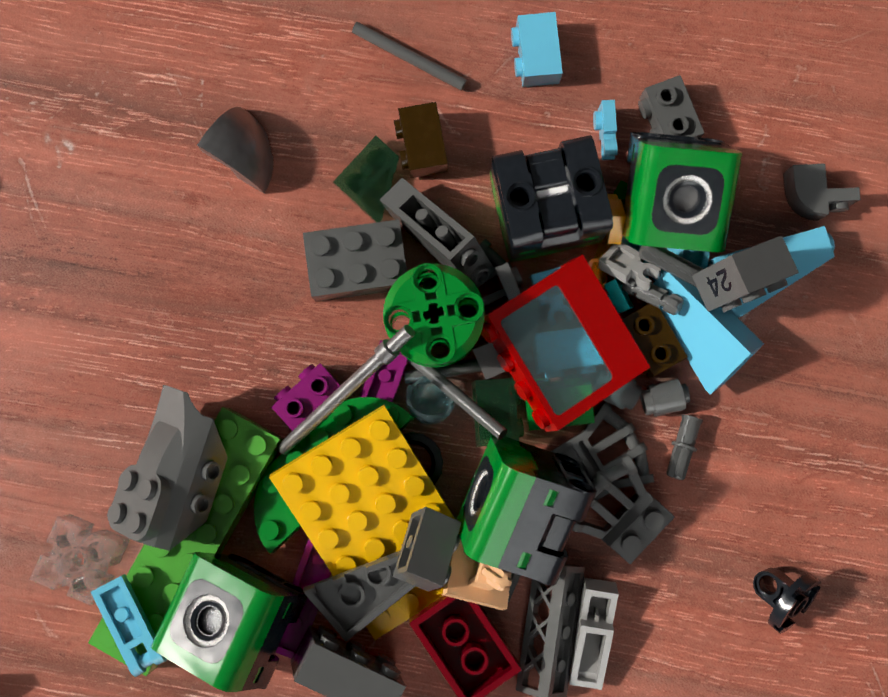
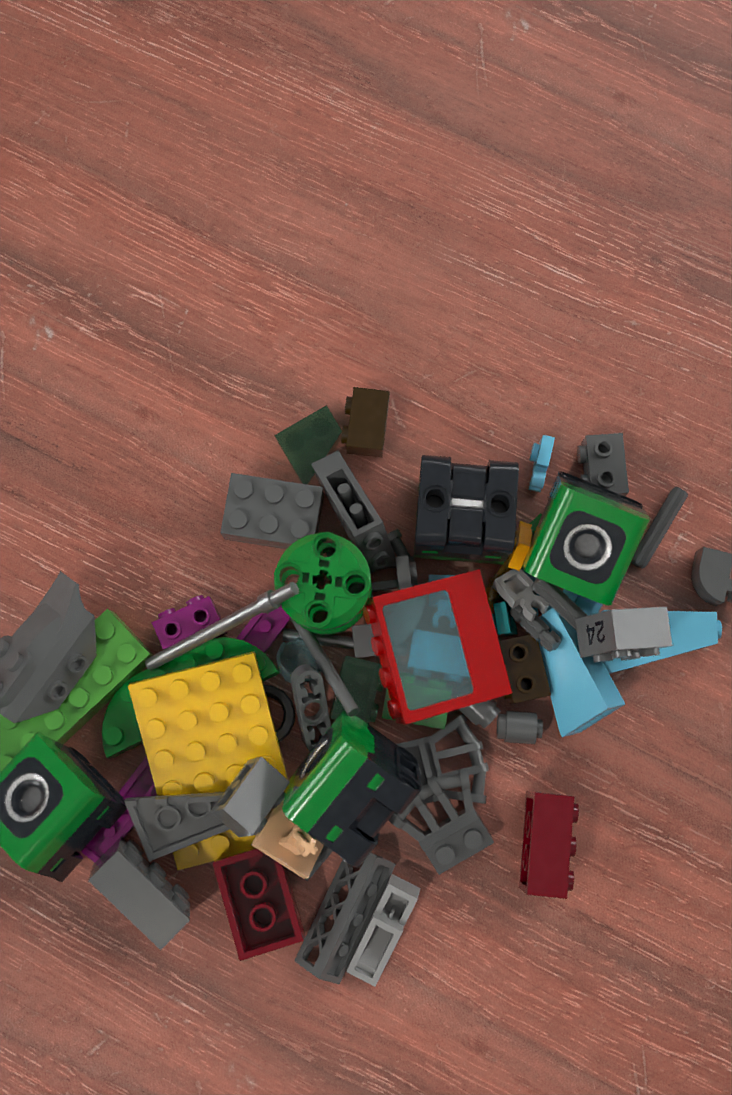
camera: 20 degrees right, 5 degrees down
(241, 145) = (202, 378): flat silver brick -> none
(409, 56) = (380, 343): dark grey bar -> none
(446, 436) = (303, 698): none -> dark grey beam
(538, 49) = (499, 372): medium azure piece -> none
(683, 447) = (523, 779): dark grey axle -> none
(728, 503) = (548, 844): none -> dark red brick
(746, 144) = (659, 527): none -> dark grey axle
(789, 597) = (580, 955): black tile -> none

